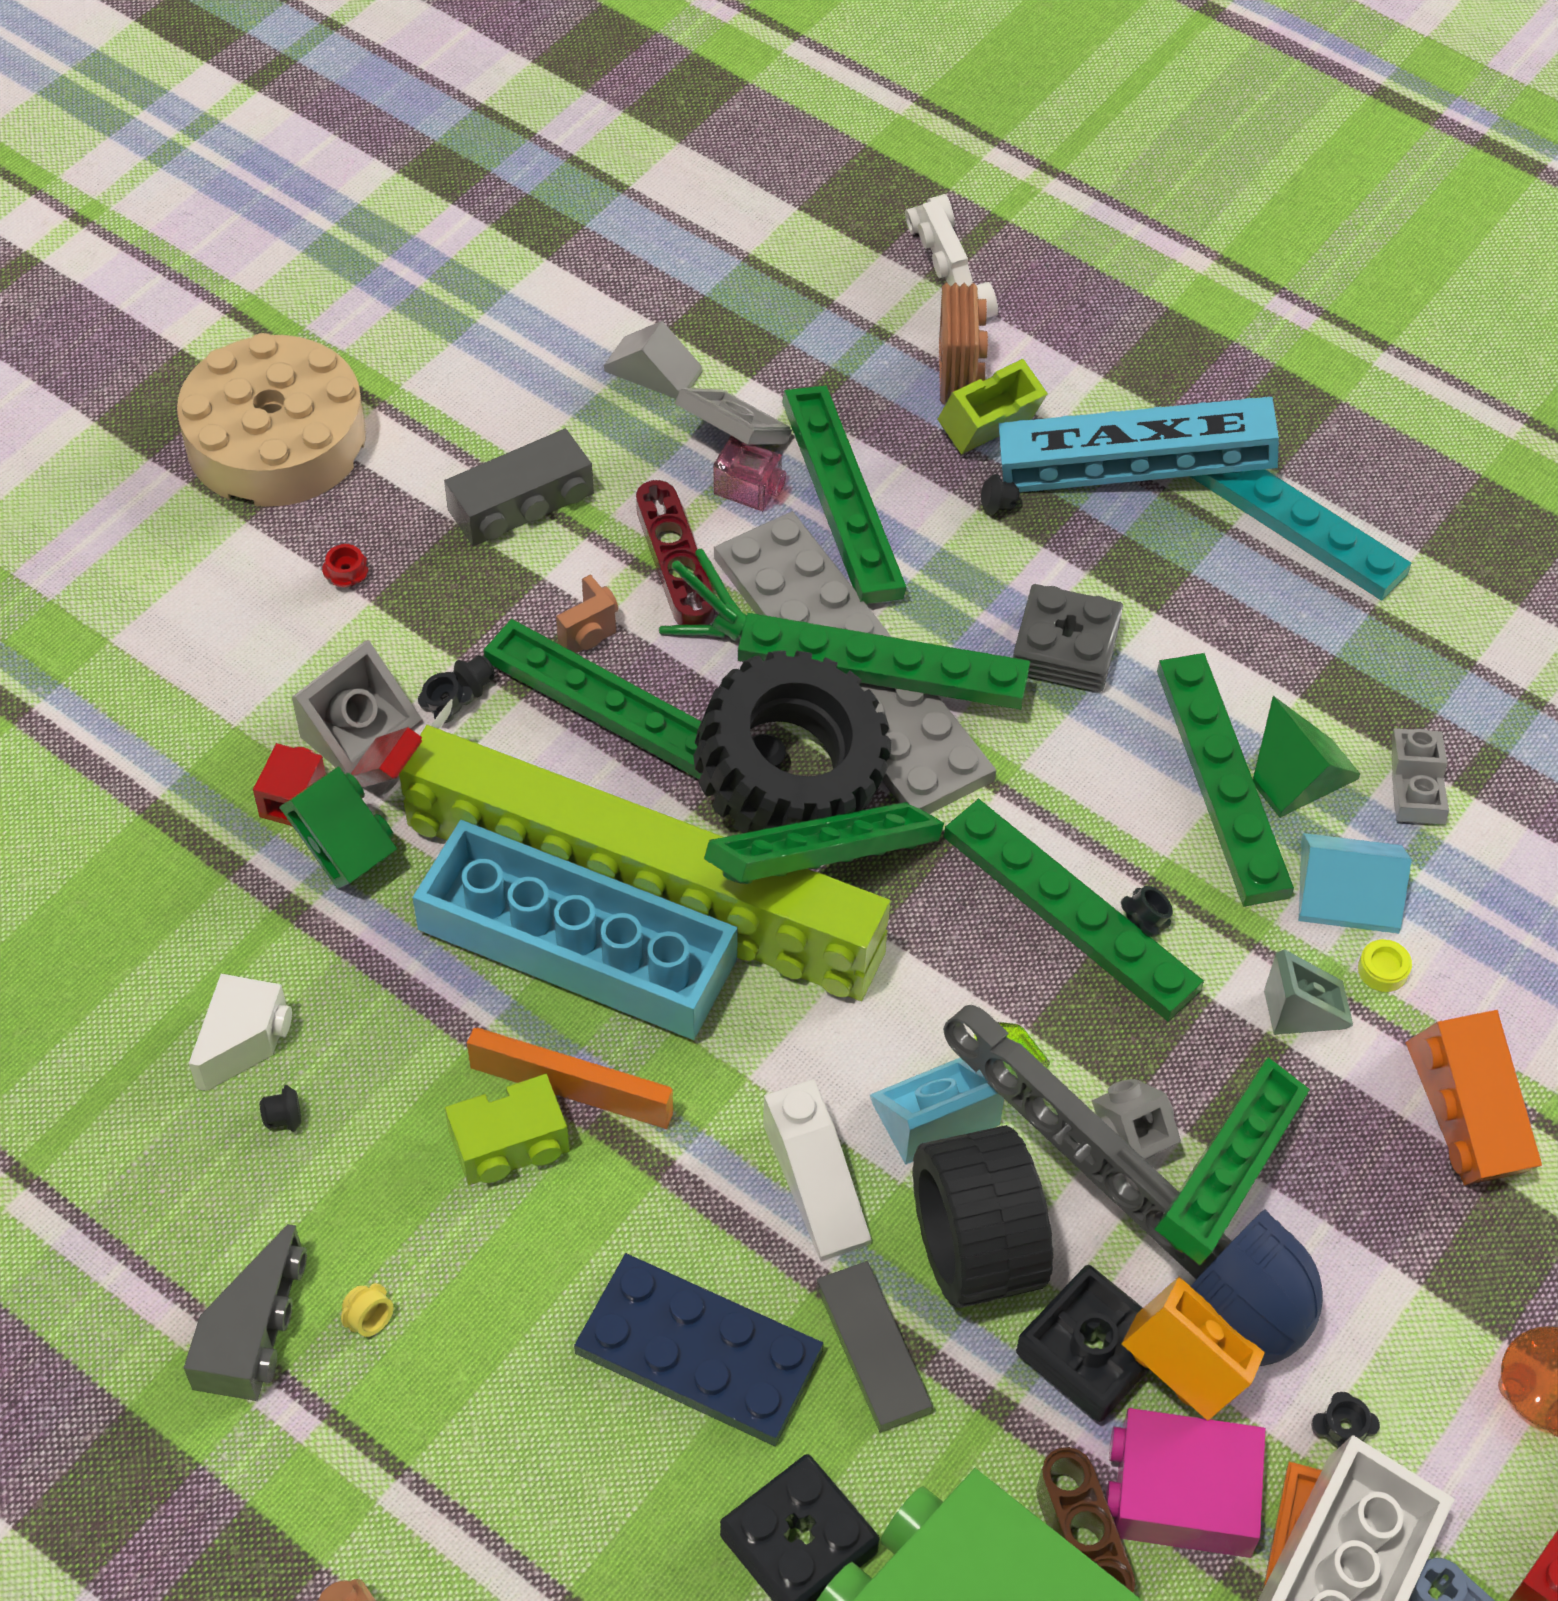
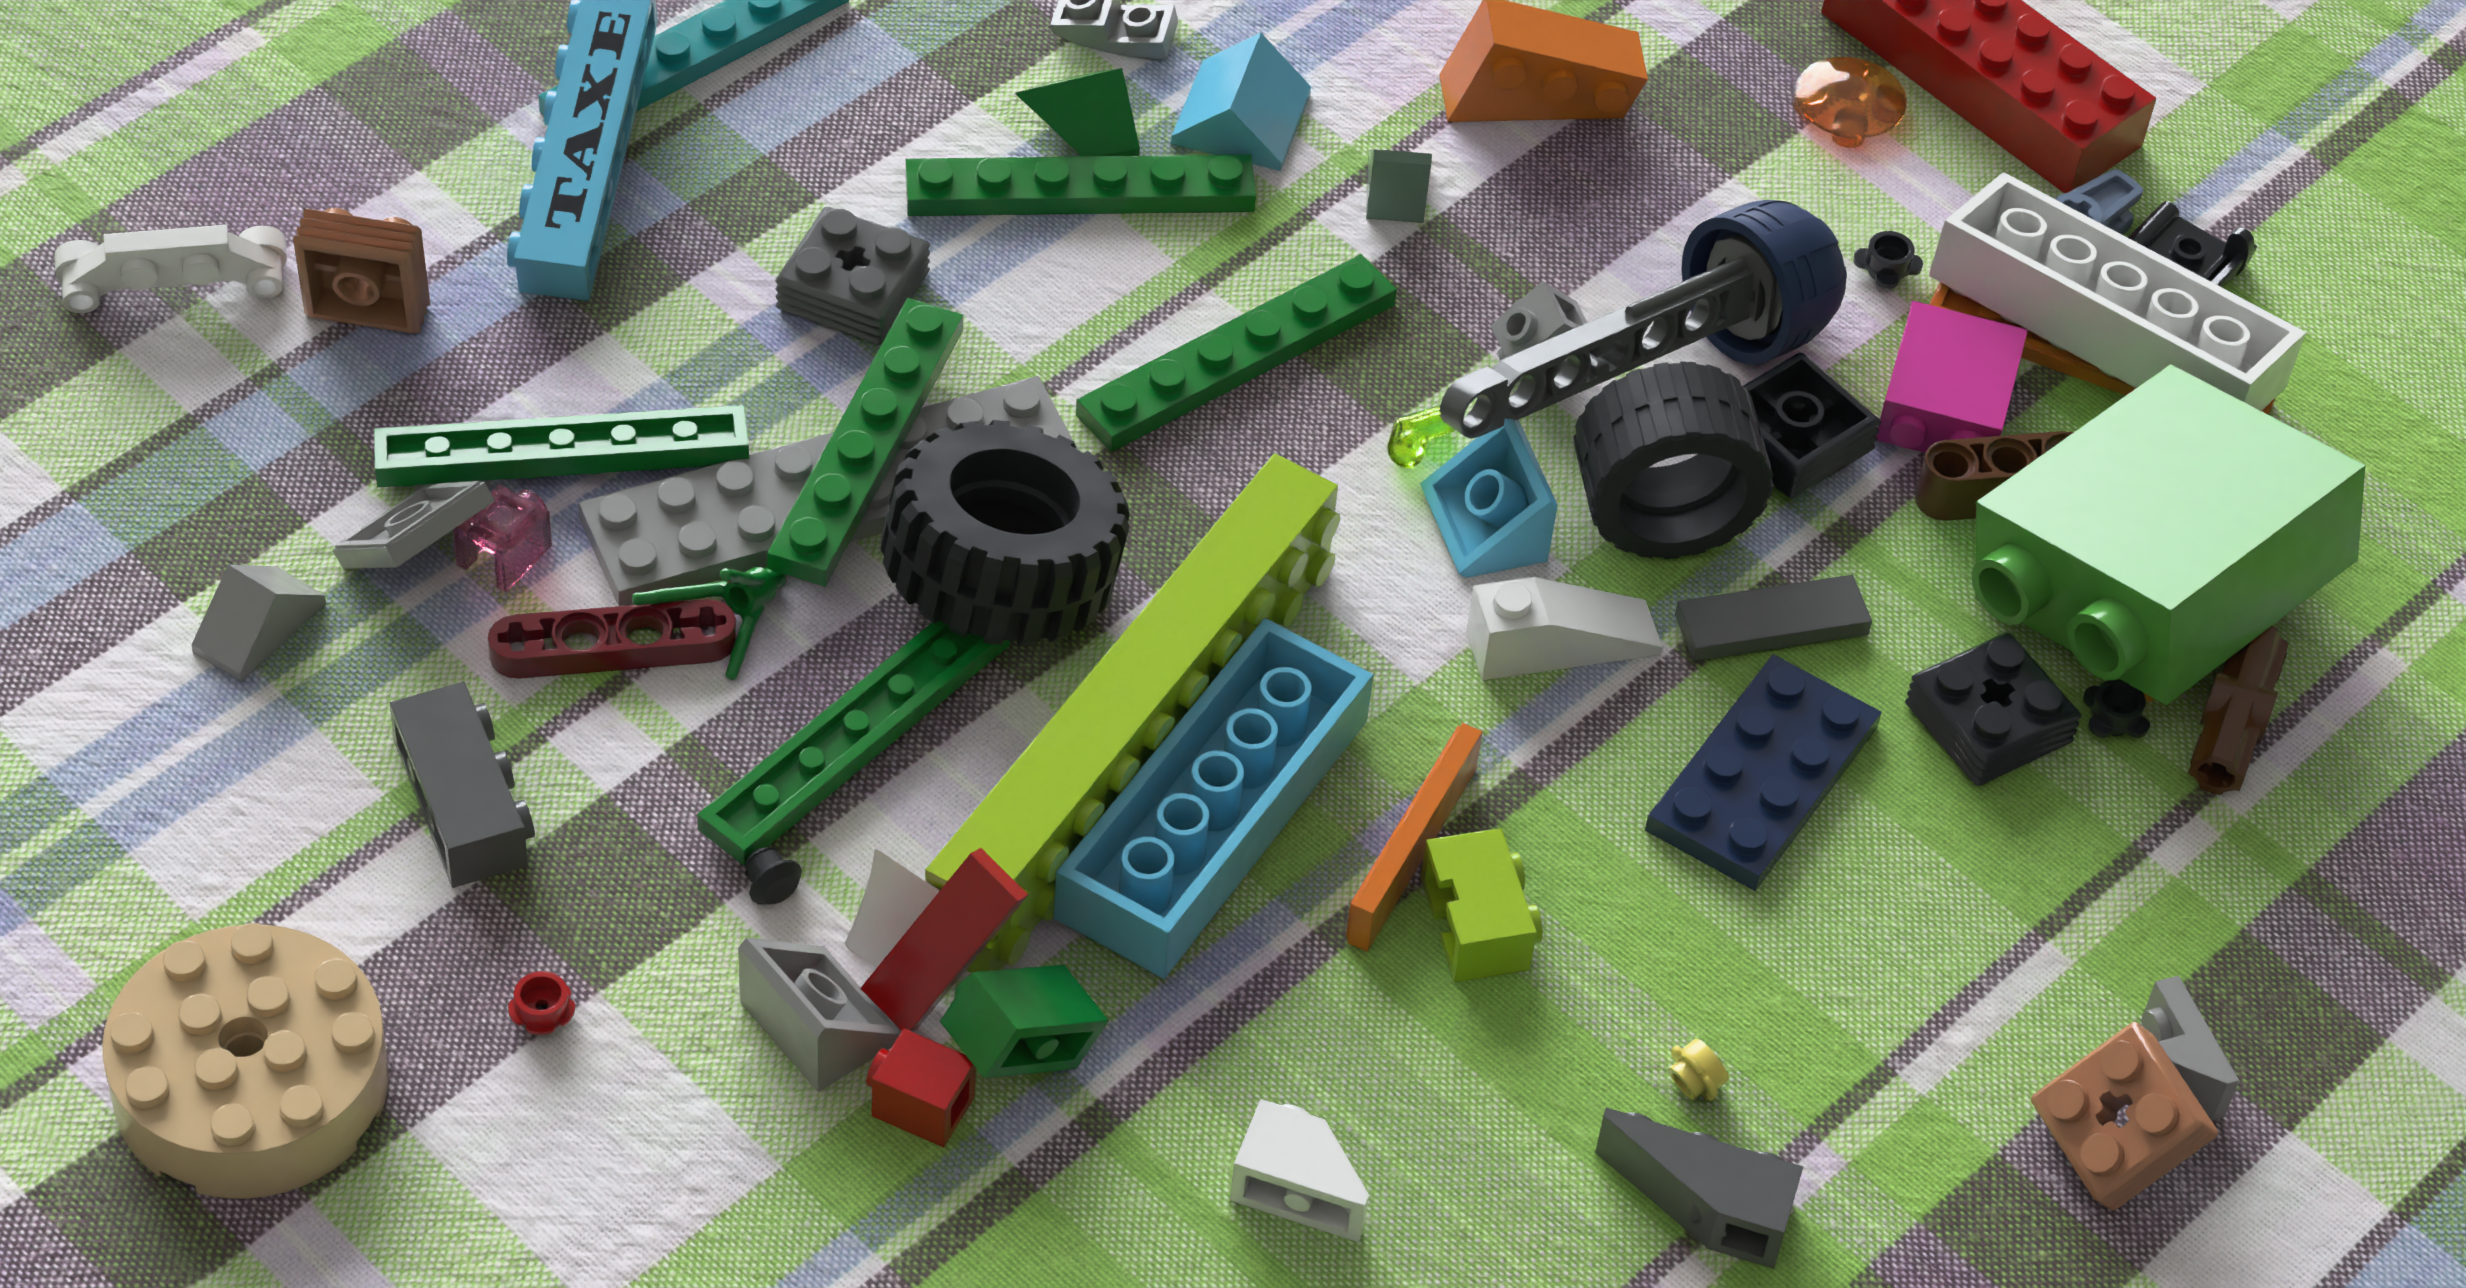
camera: 85 degrees left, 5 degrees down
(281, 1109) = (1414, 1138): black piece -> none
(438, 688) = (805, 891): black plate -> none
(589, 621) = (708, 722): nougat bracket -> none
(821, 842) = (1192, 504): green plate -> none
(977, 409) = (474, 264): lime brick -> none
(998, 494) = (607, 298): black piece -> none
(1148, 910) = (1261, 280): black plate -> none
(1192, 1349) = (1843, 320): light orange brick -> none
(1232, 1162) = (1630, 240): green plate -> none
(1384, 965) = (1355, 110): neon yellow tile -> none

